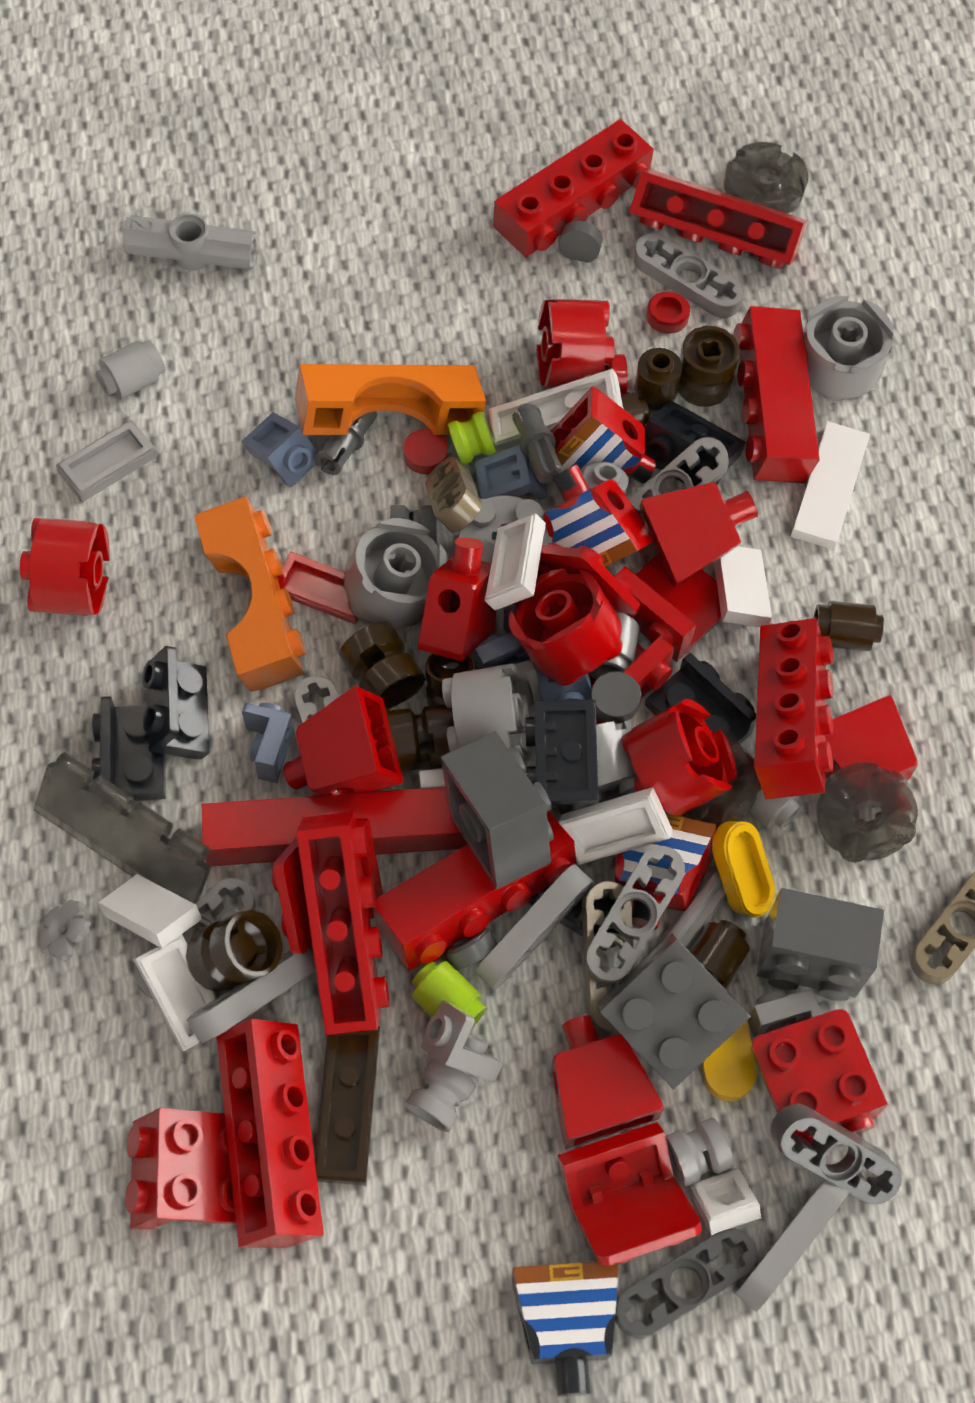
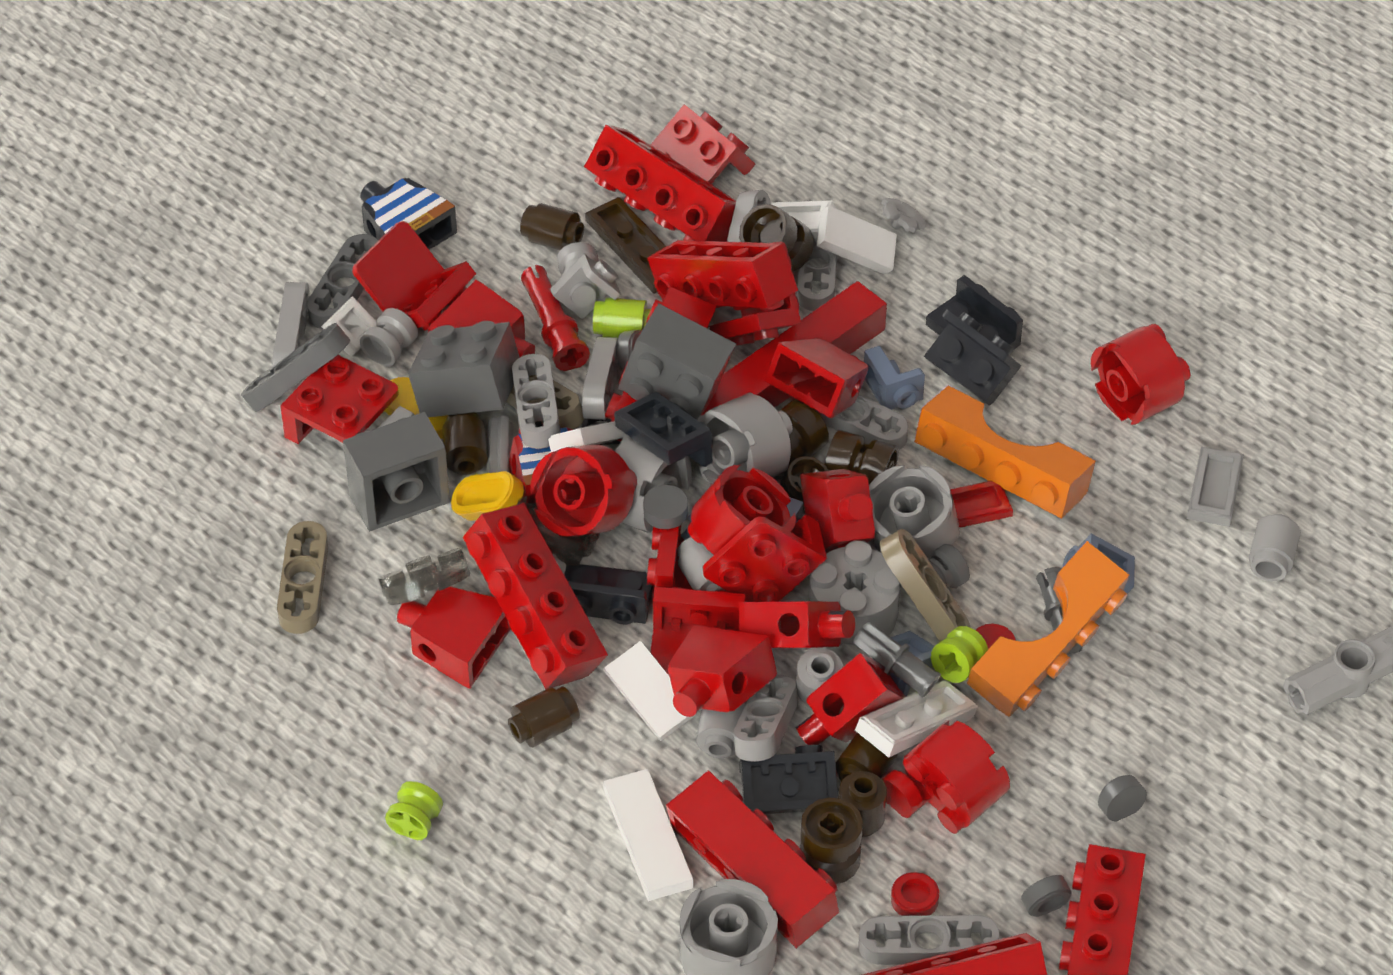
camera: 145 degrees right, 15 degrees down
(129, 840) = (916, 270): clear smoke windscreen -> none
(418, 1182) = (551, 226): none -> dark brown brick
(457, 268) = (1122, 797): none -> dark grey tile
(515, 562) = (819, 529): white tile -> none
(517, 1035) = (558, 329): none -> red pin

